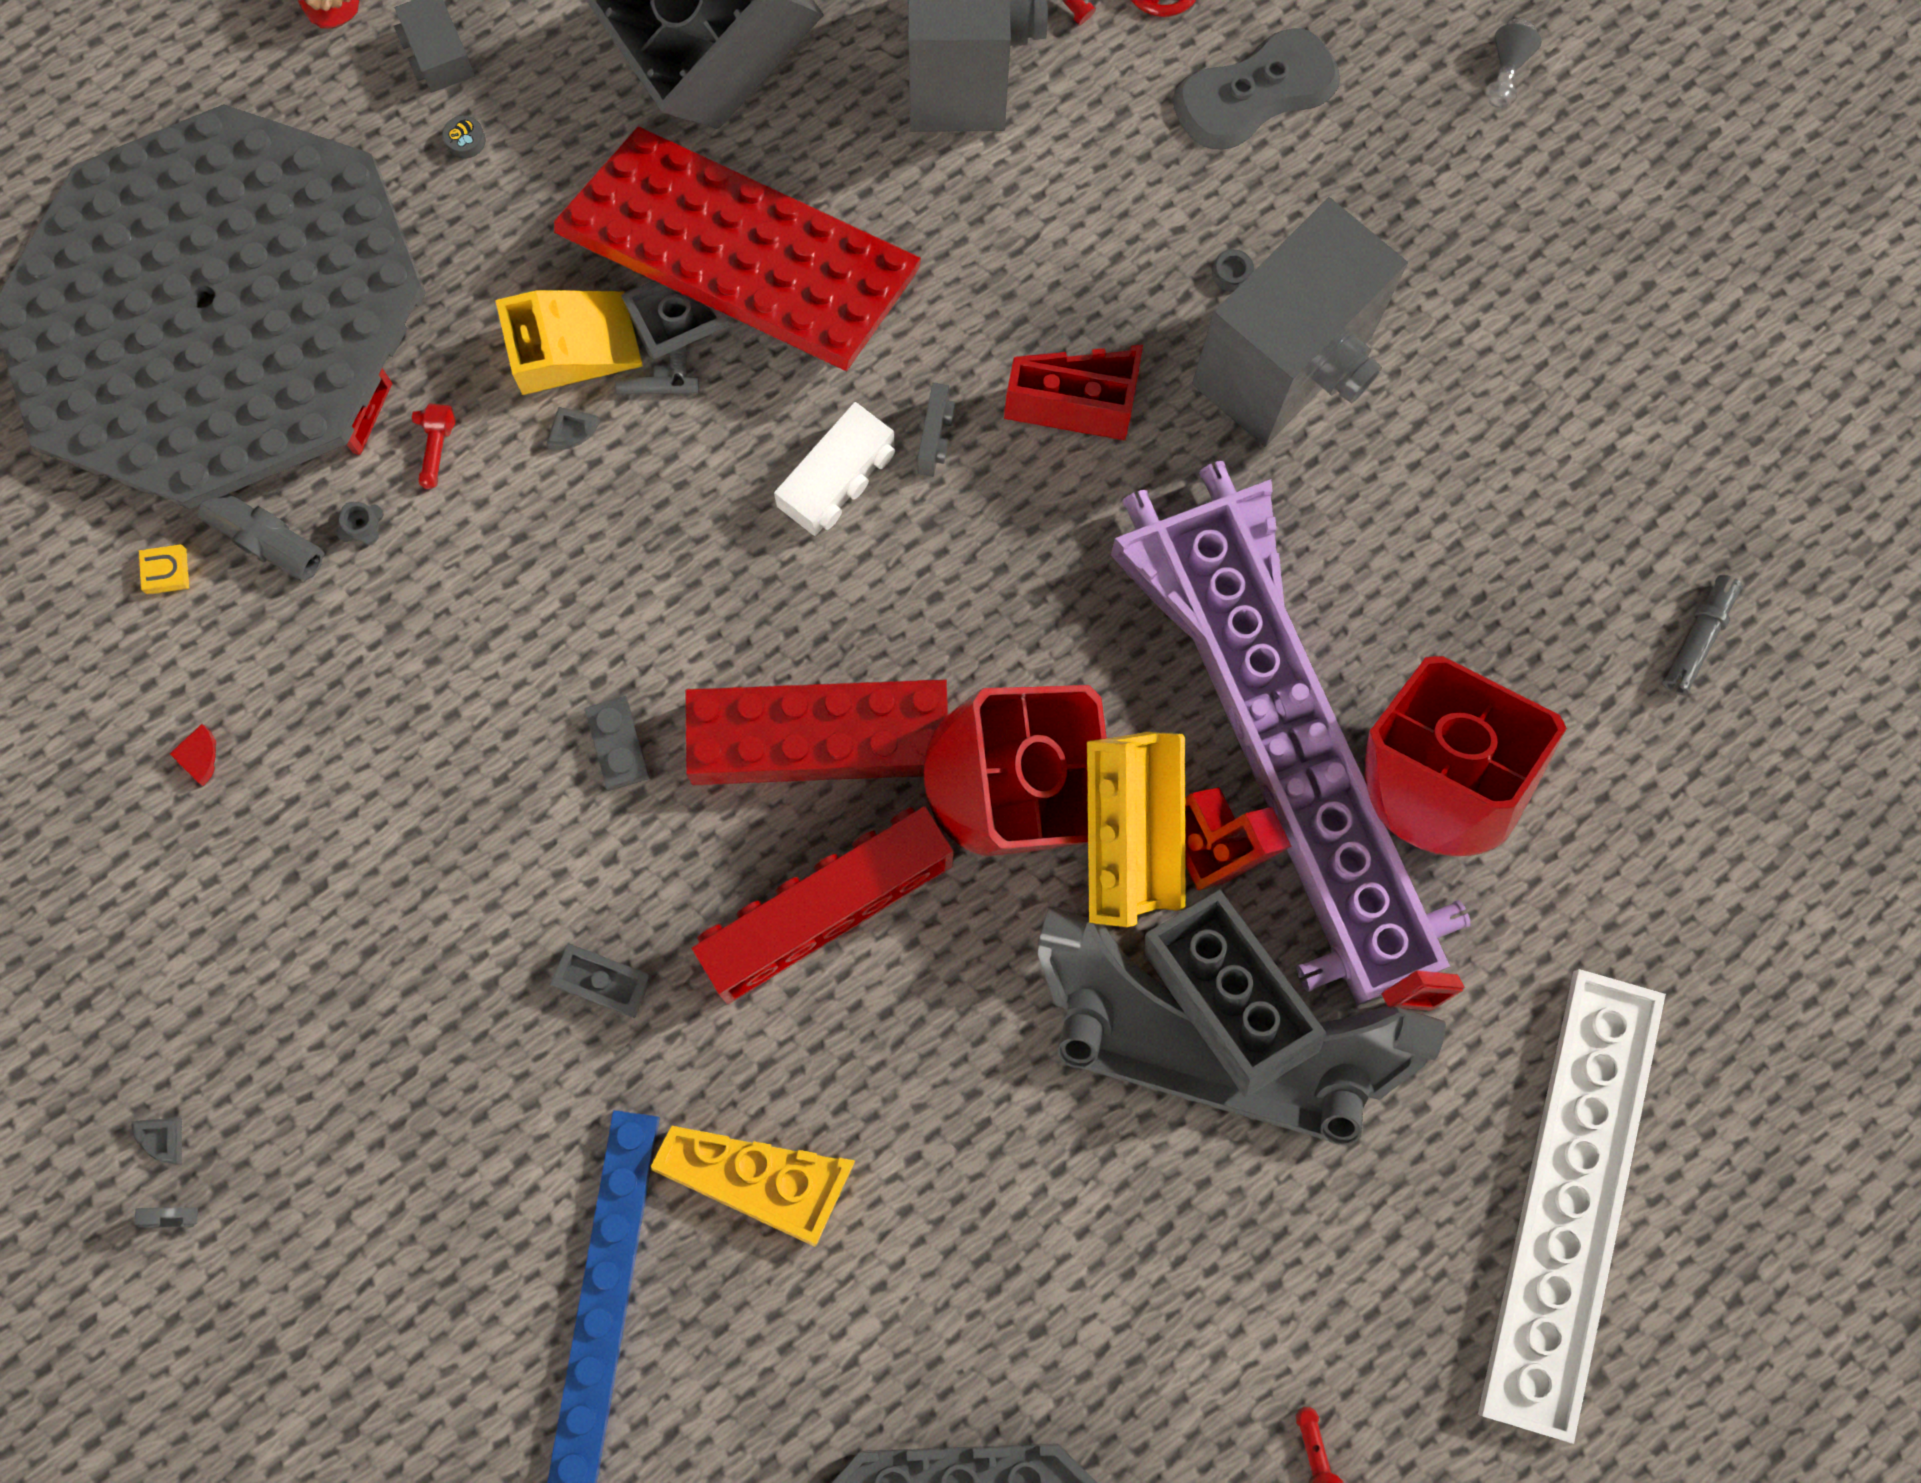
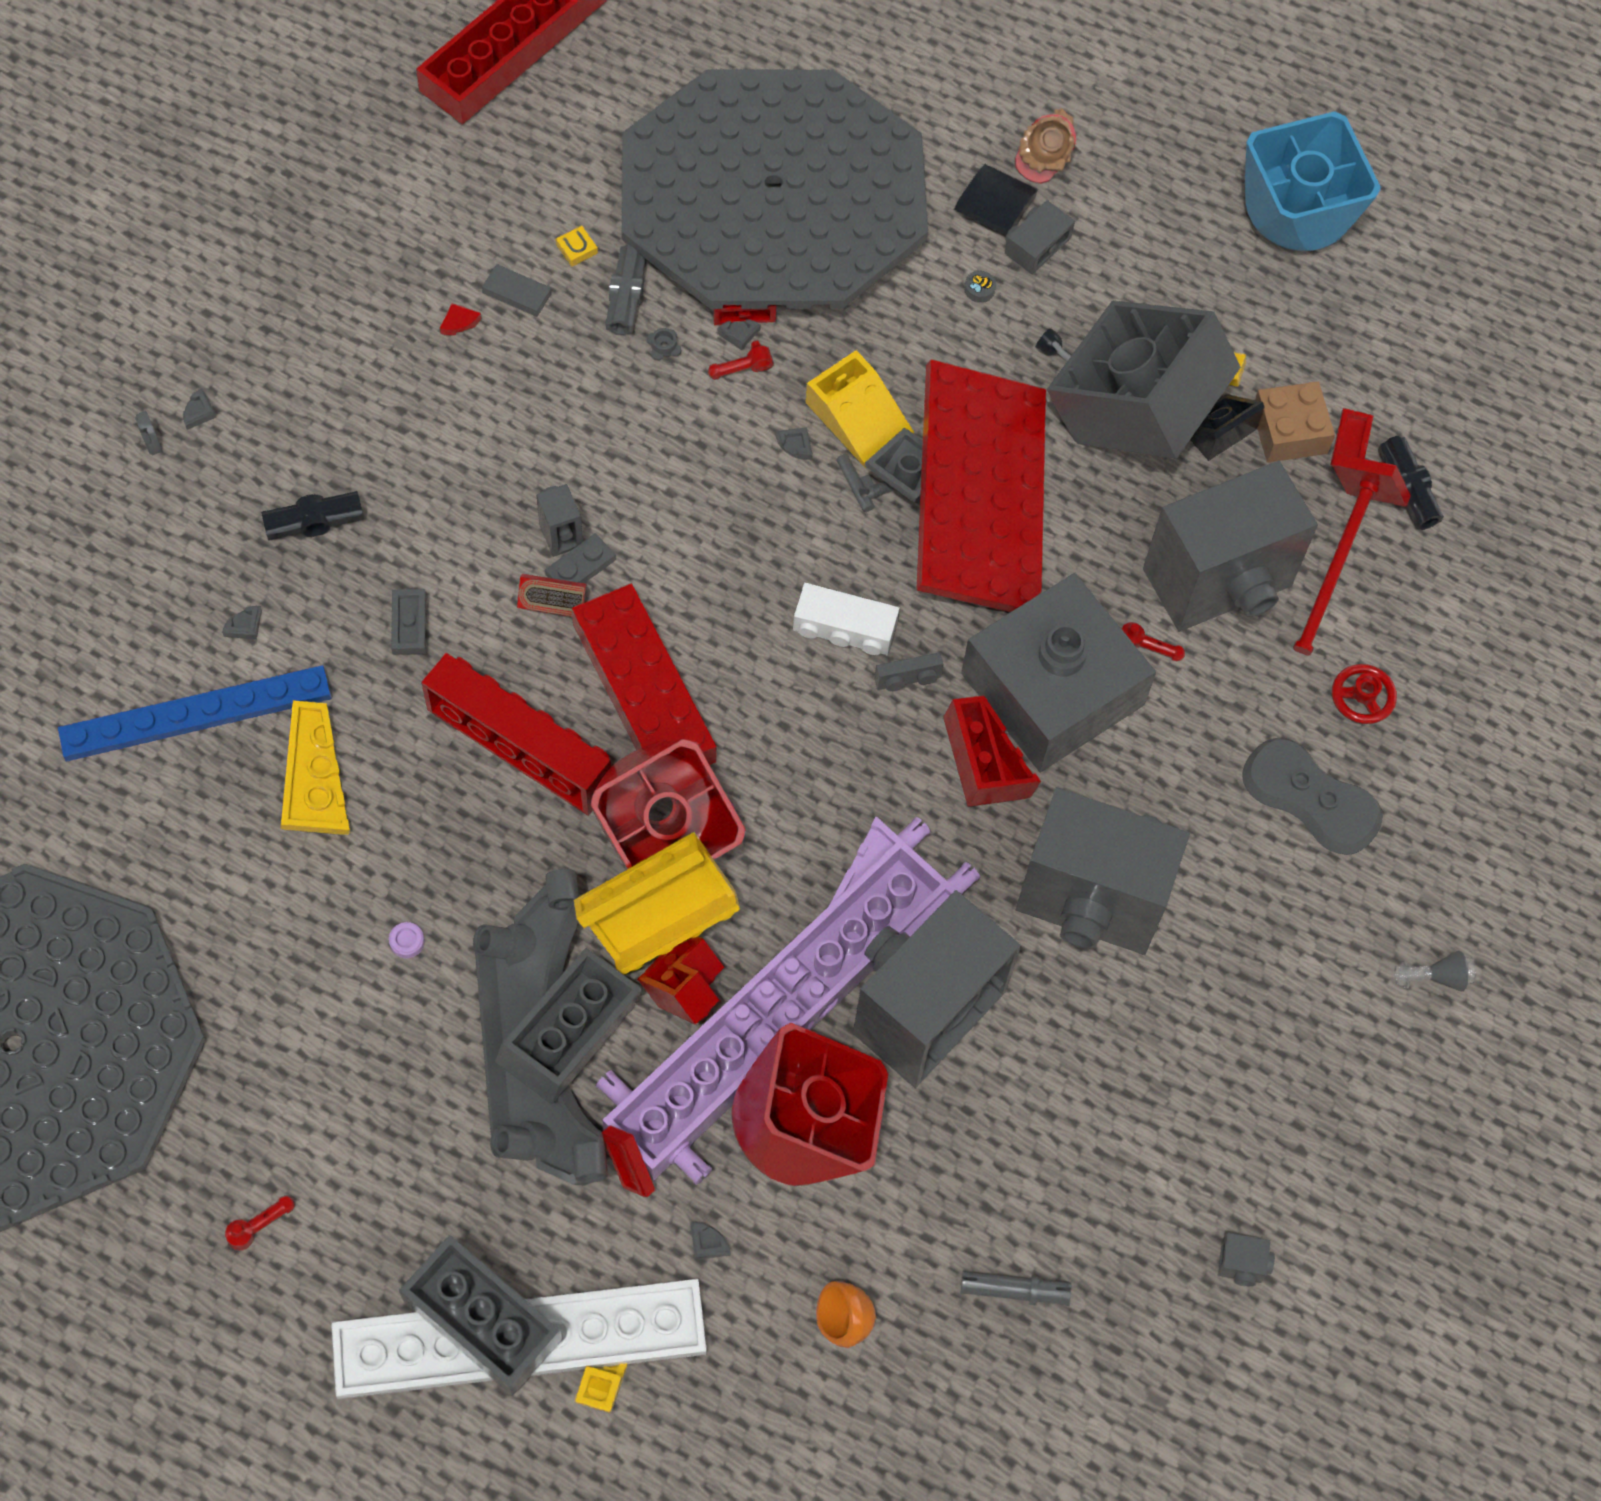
camera: 65 degrees right, 10 degrees down
(190, 667) = (516, 290): none -> dark grey tile
(356, 66) = (995, 199): none -> black slope
(386, 430) = (739, 332): none -> dark grey tile
(394, 1045) = (312, 515): none -> black piece
(505, 1190) = (244, 624): none -> dark grey tile
(554, 740) = (559, 519): none -> dark grey brick
(582, 94) = (1051, 344): none -> black hinge
(647, 793) = (550, 594): none -> tile
(993, 174) = (1139, 639): none -> red piece
(1019, 265) = (1057, 671): none -> dark grey brick
(1026, 1145) = (406, 940): none -> lavender tile
(1366, 559) = (932, 986): none -> dark grey brick
(1530, 941) = (708, 1242): none -> dark grey tile
(1556, 1235) = (481, 1315): none -> dark grey brick
(1664, 1130) = (600, 1386): none -> yellow slope
(1679, 825) = (845, 1314): none -> orange hat
(1755, 391) = (1245, 1259): none -> dark grey brick

